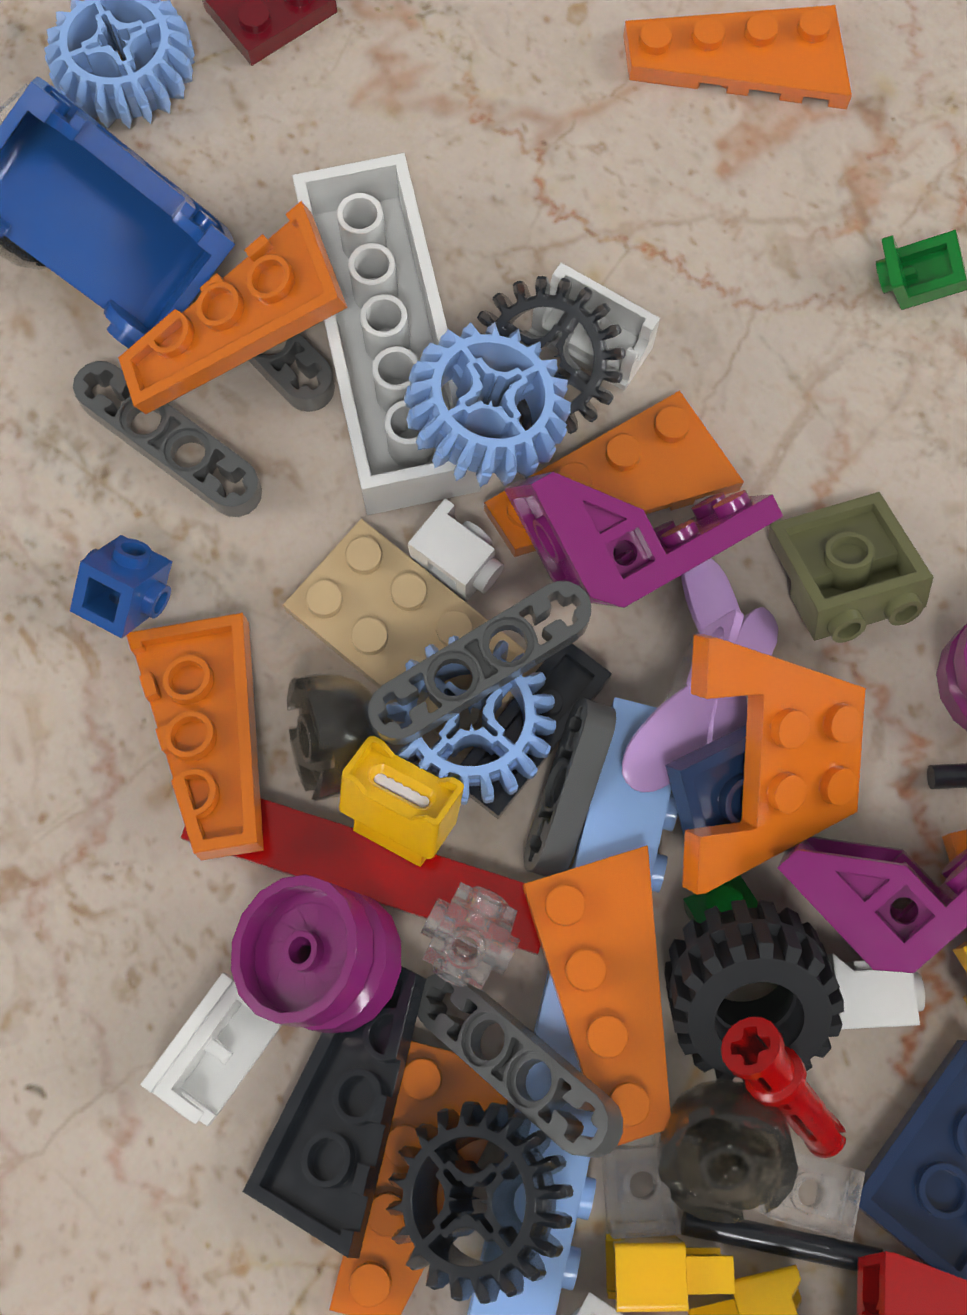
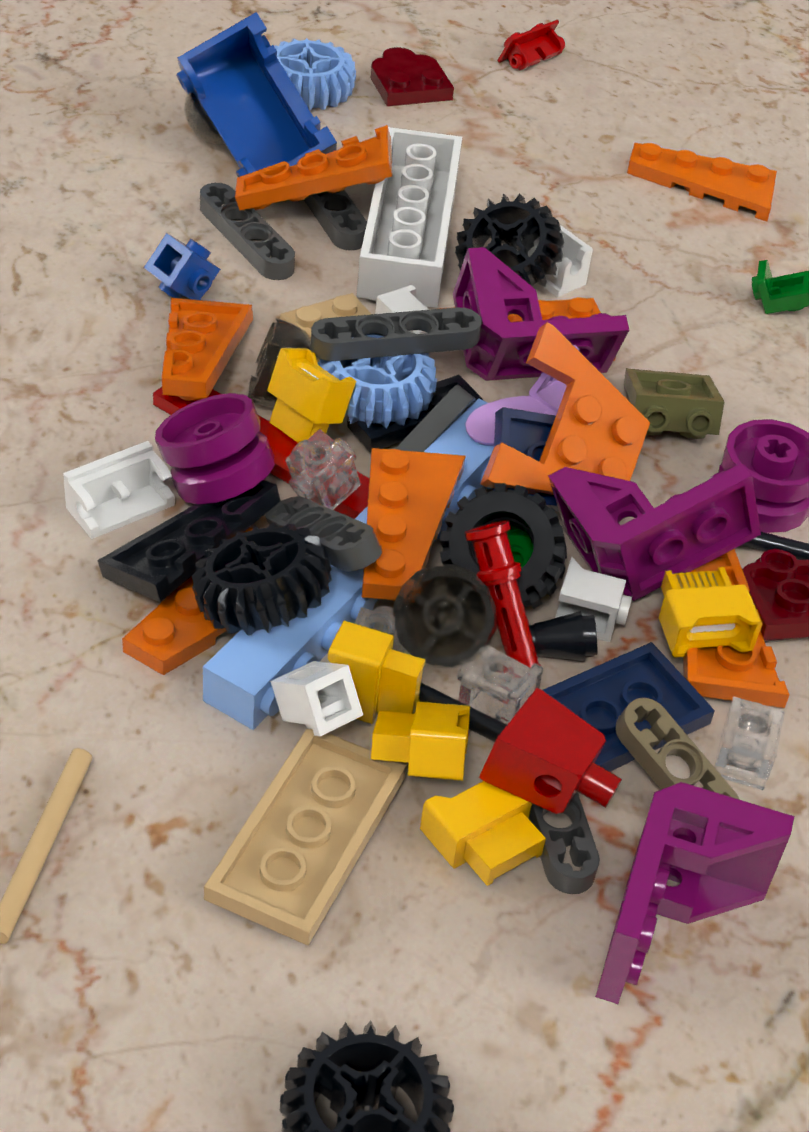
camera: 15 degrees right, 30 degrees down
(494, 373) = (450, 222): light blue gear -> none
(856, 1067) = (566, 637): none -> black cone

